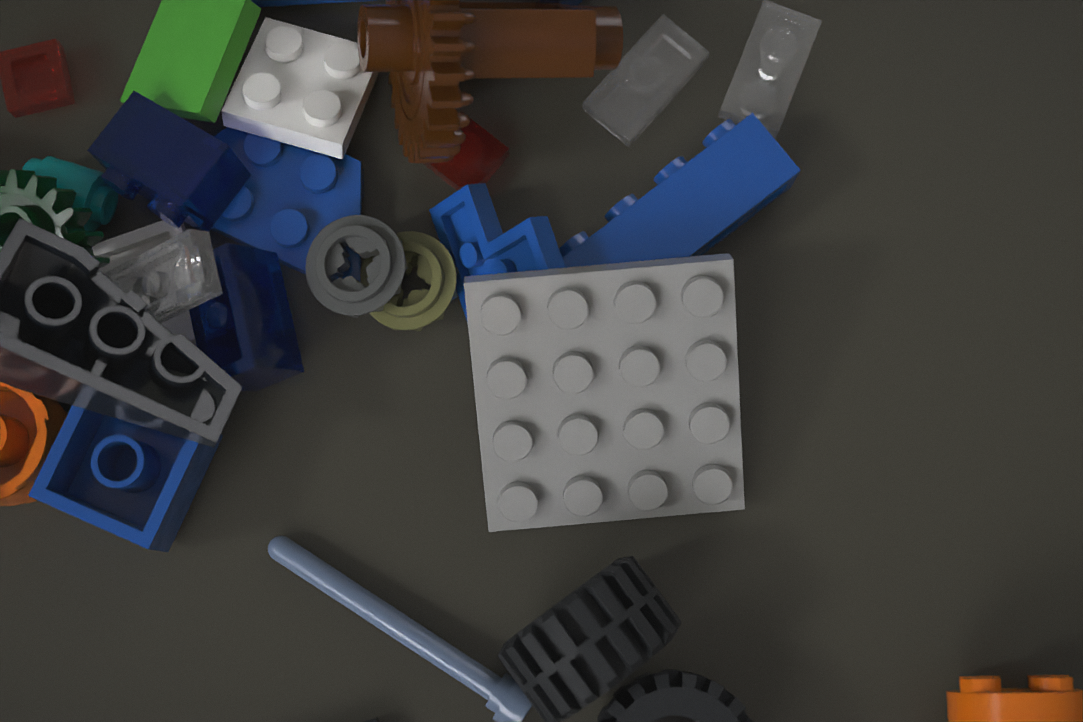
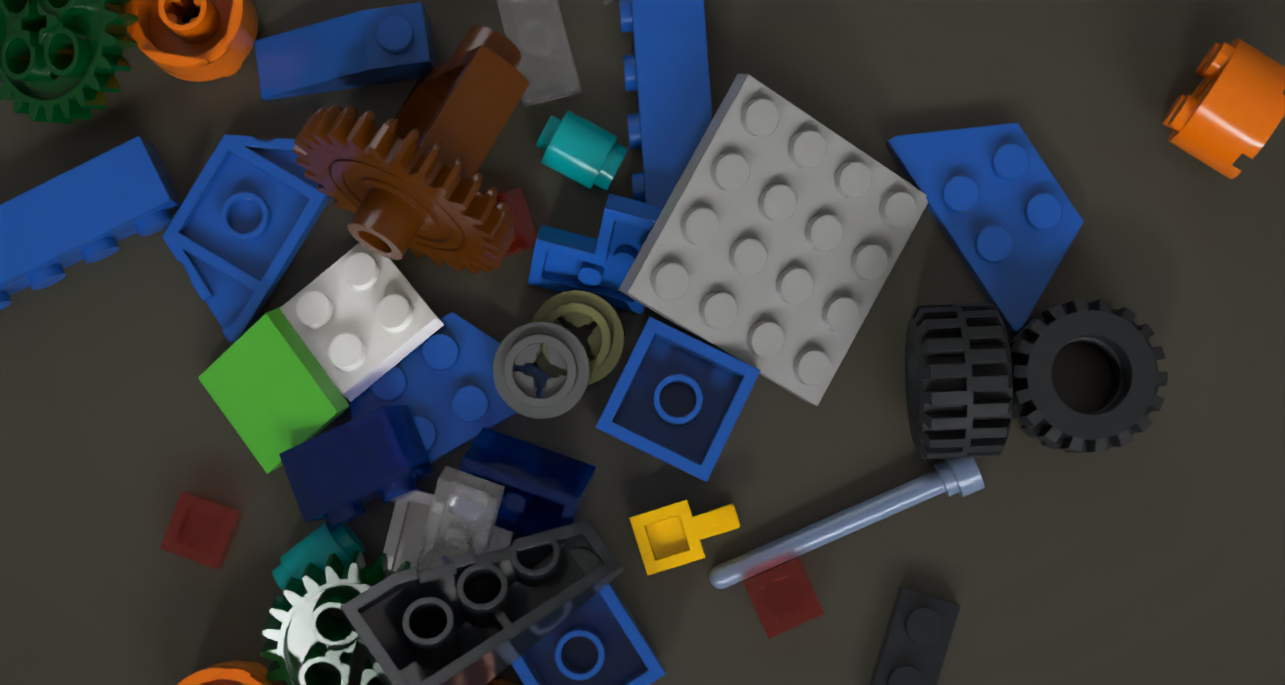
camera: 55 degrees left, 5 degrees up
(290, 481) = (674, 536): none -> yellow plate
(295, 616) = (783, 597): none -> clear red plate
(406, 400) = (677, 399): none -> blue brick
(575, 177) = (581, 150): none -> teal brick
(775, 574) = (994, 208): none -> blue wing

